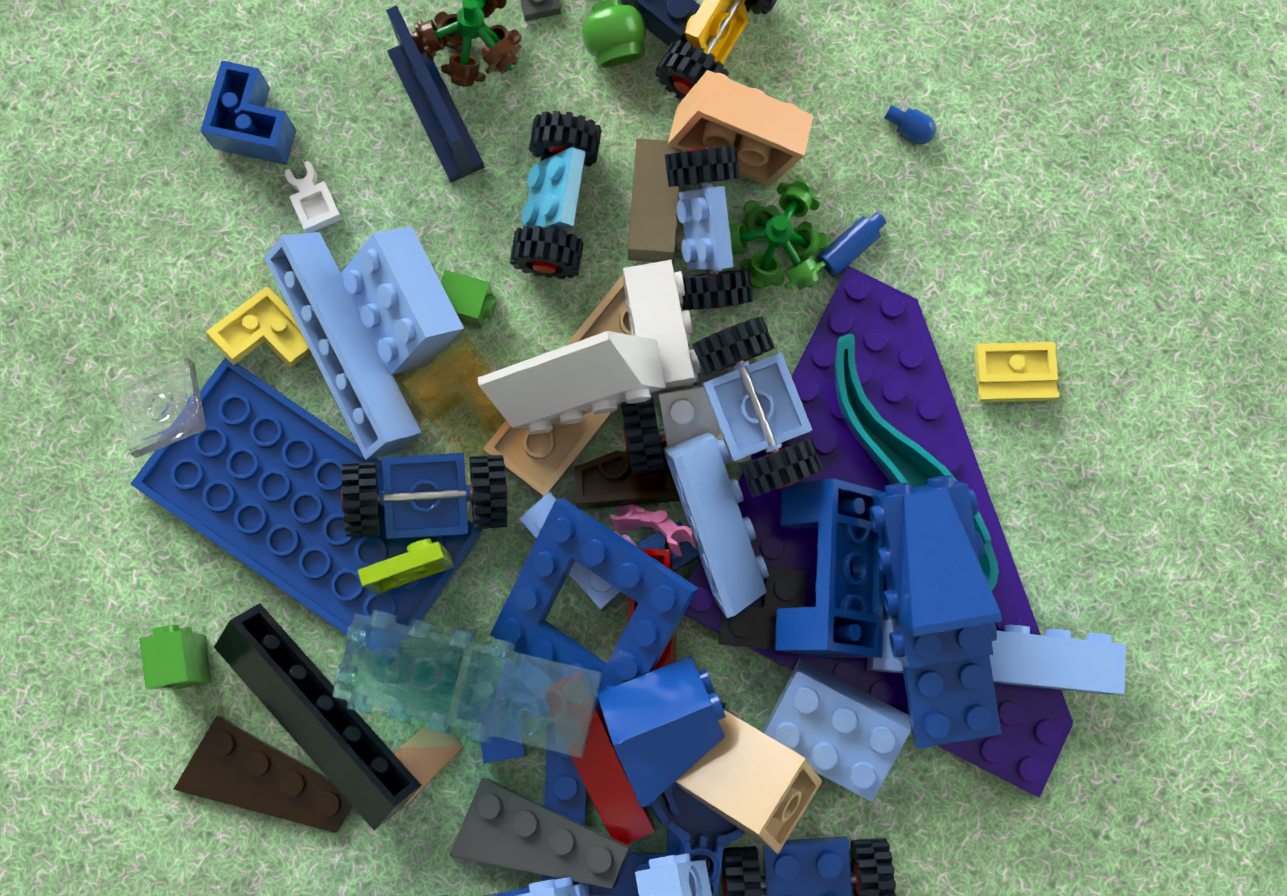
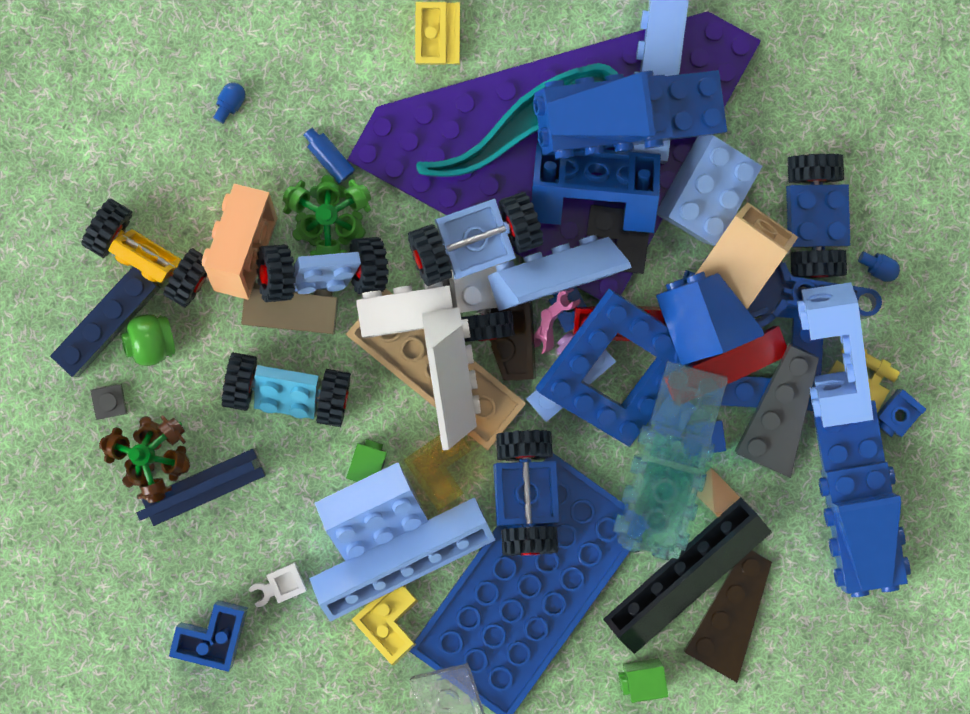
camera: 85 degrees left, 10 degrees up
(418, 563) = (577, 494): lime plate -> none

